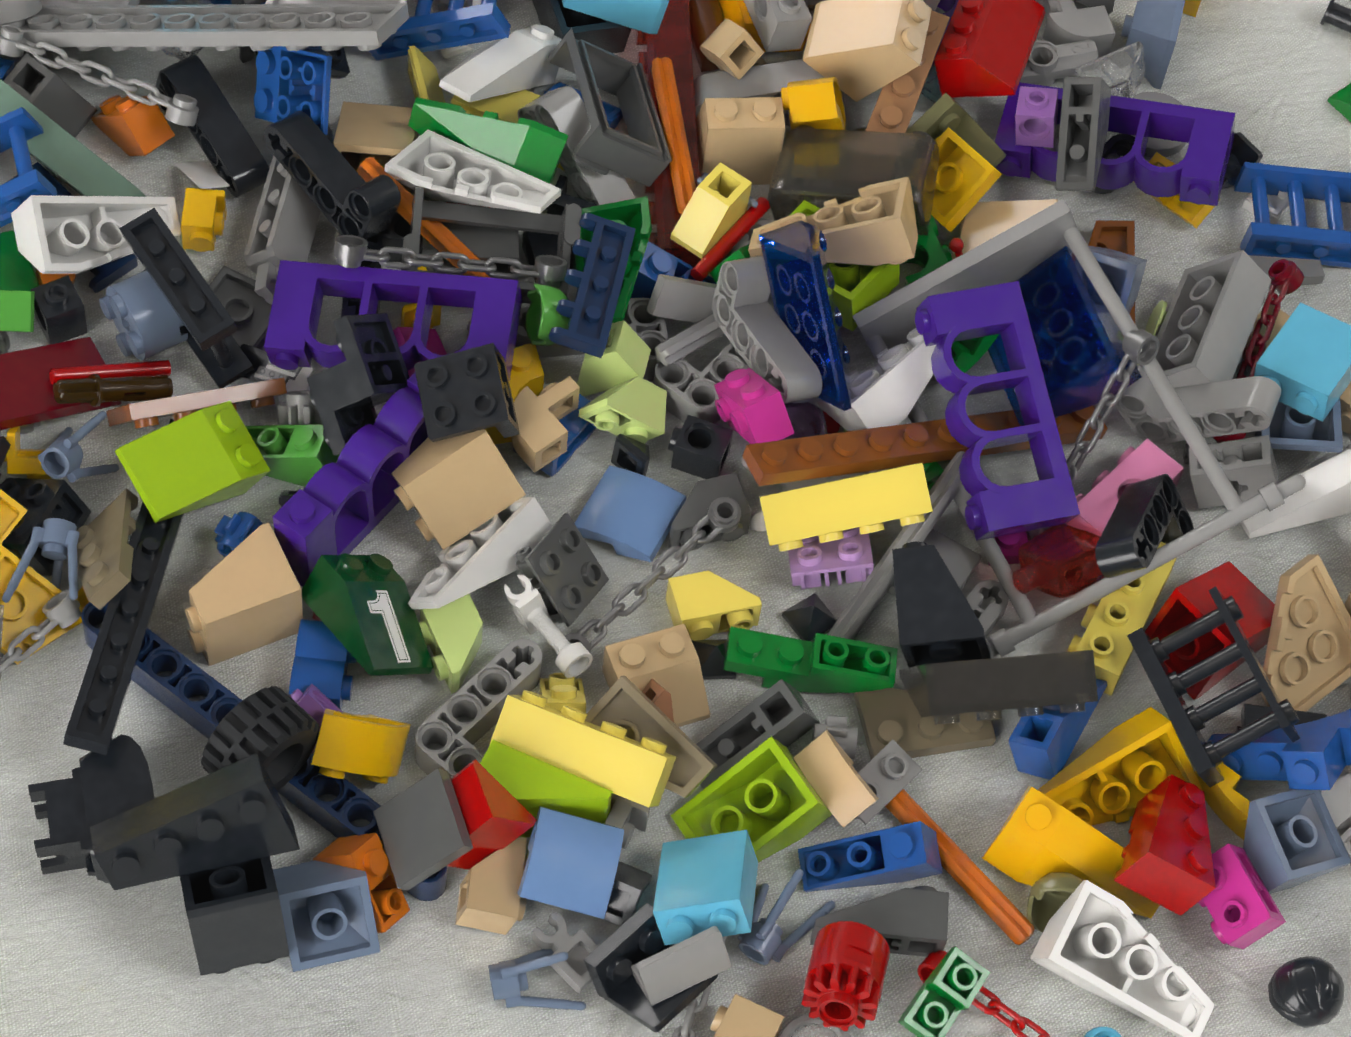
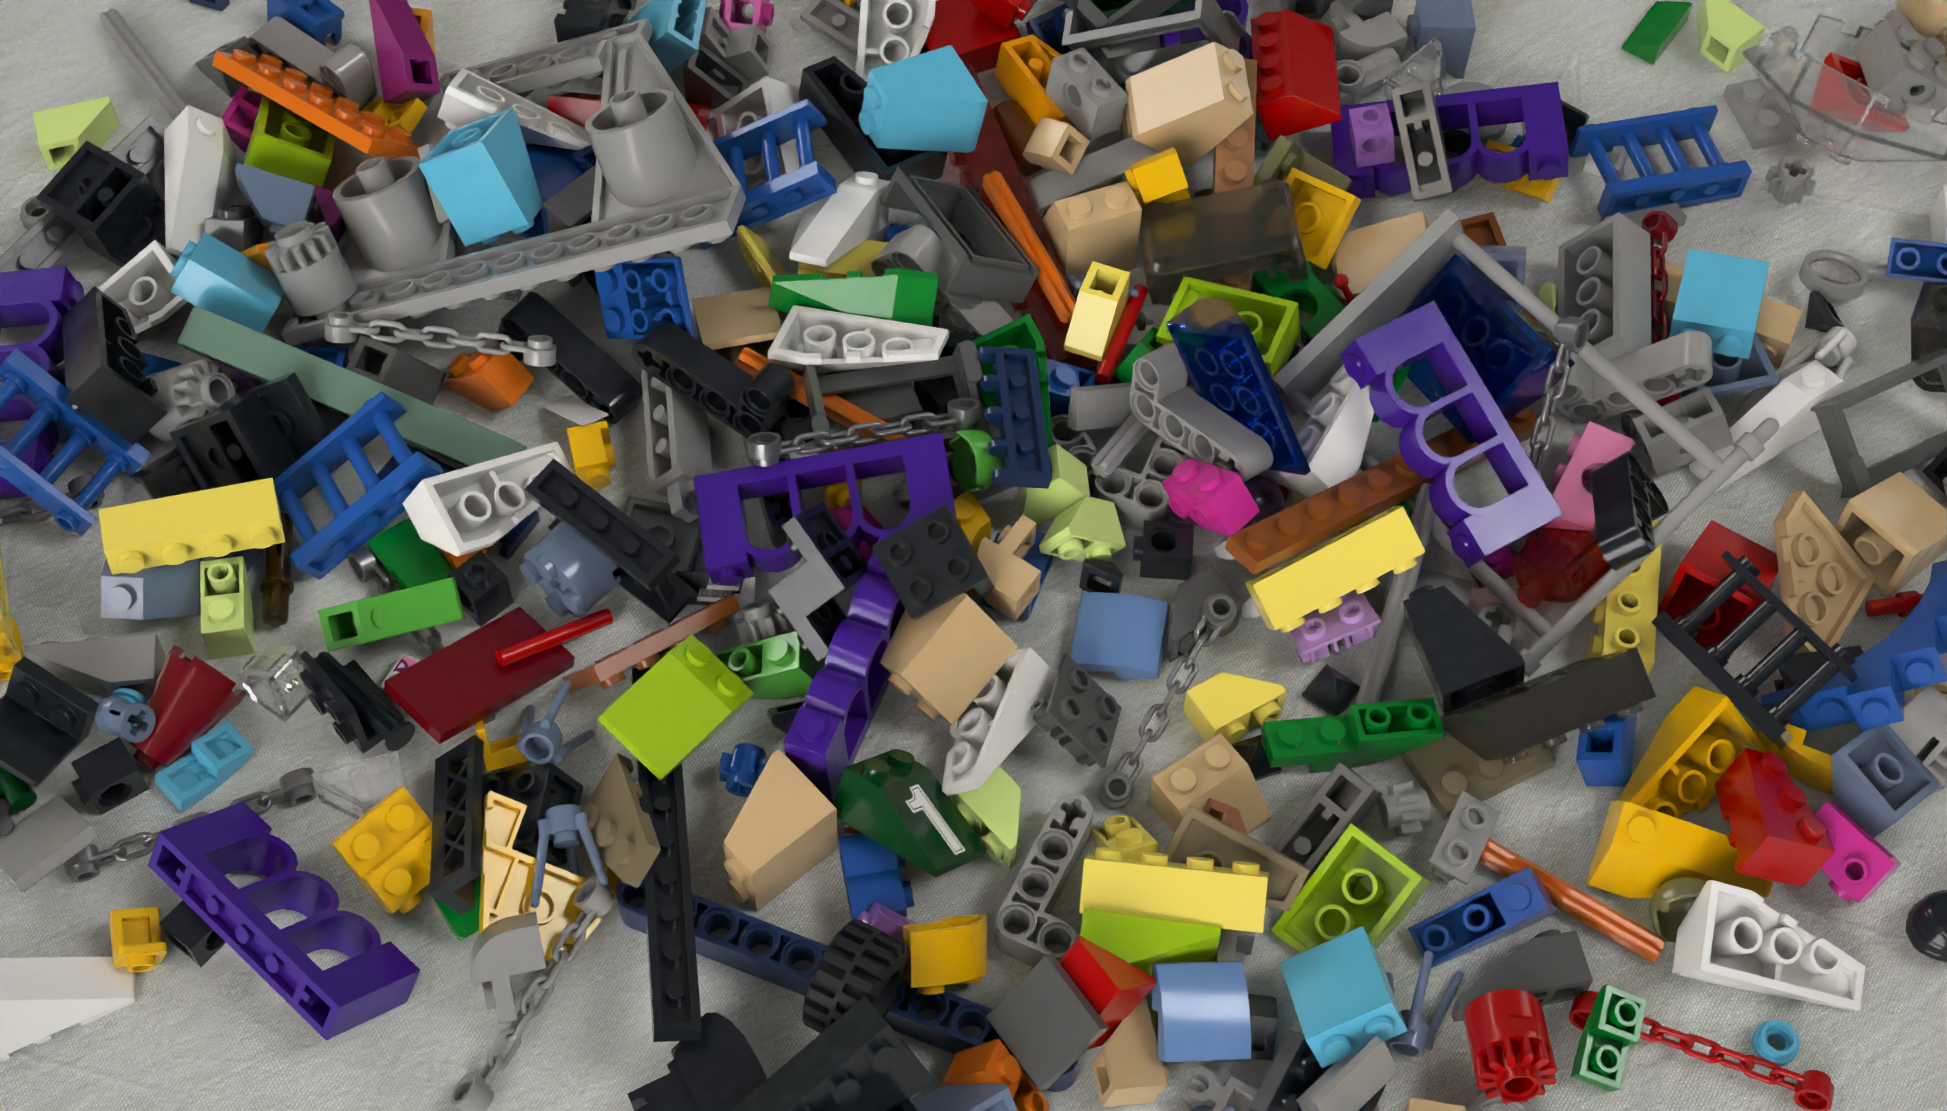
camera: 10 degrees left, 0 degrees up
(112, 389) = (551, 659): dark brown axle -> none
(532, 613) = (1065, 765): white bar -> none
(835, 779) = (1424, 847): tan slope -> none
(862, 231) = (1262, 287): tan wedge -> none

